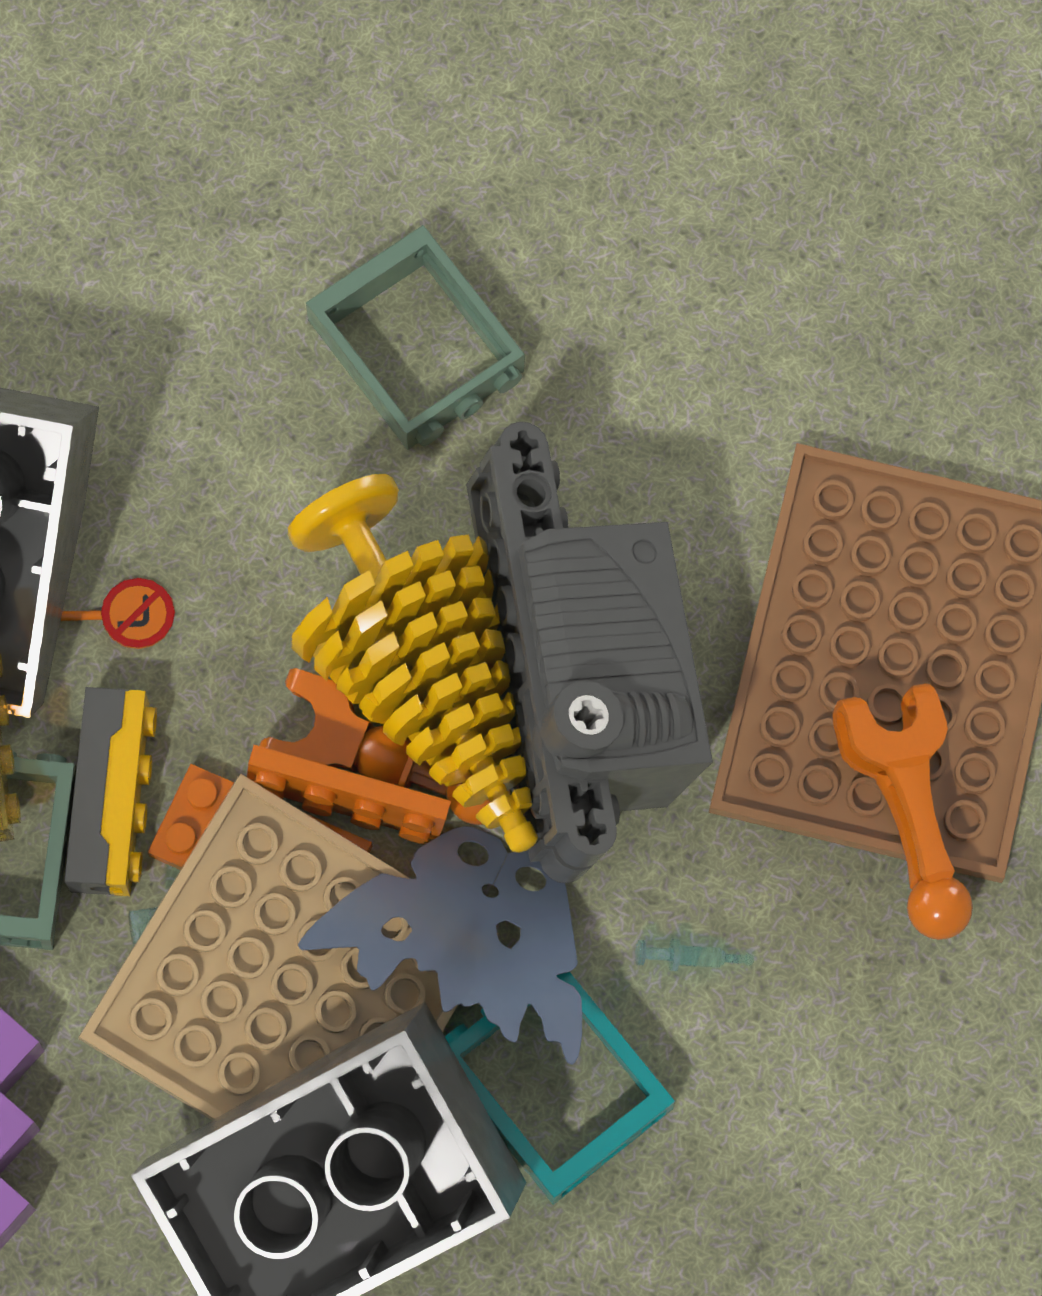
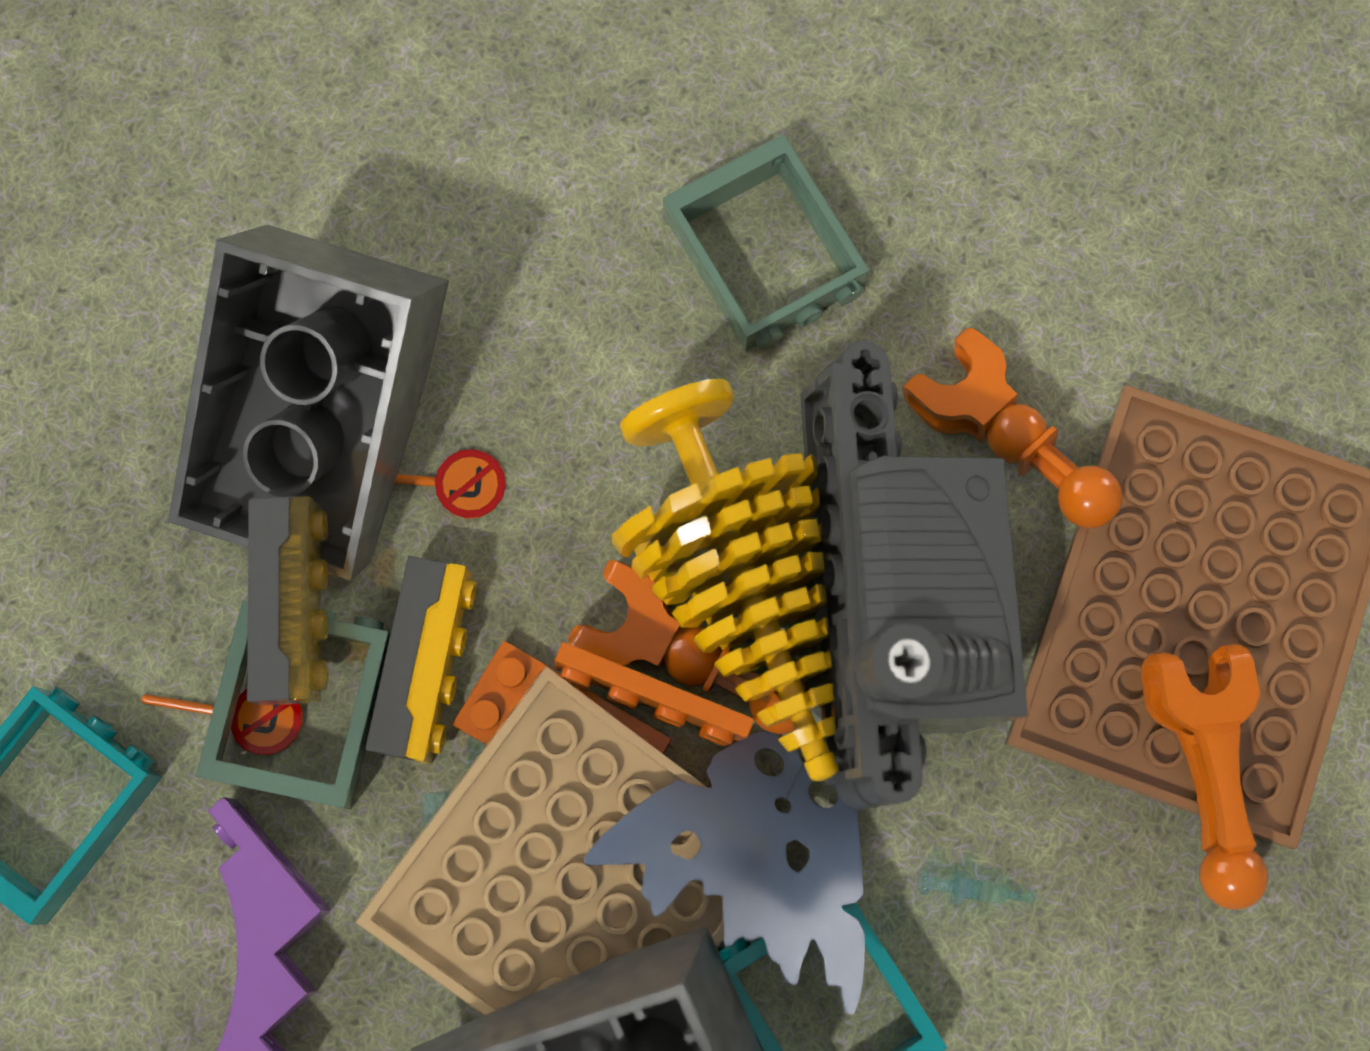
camera: 10 degrees right, 5 degrees up
(688, 501) = (1014, 431): none -> orange piece

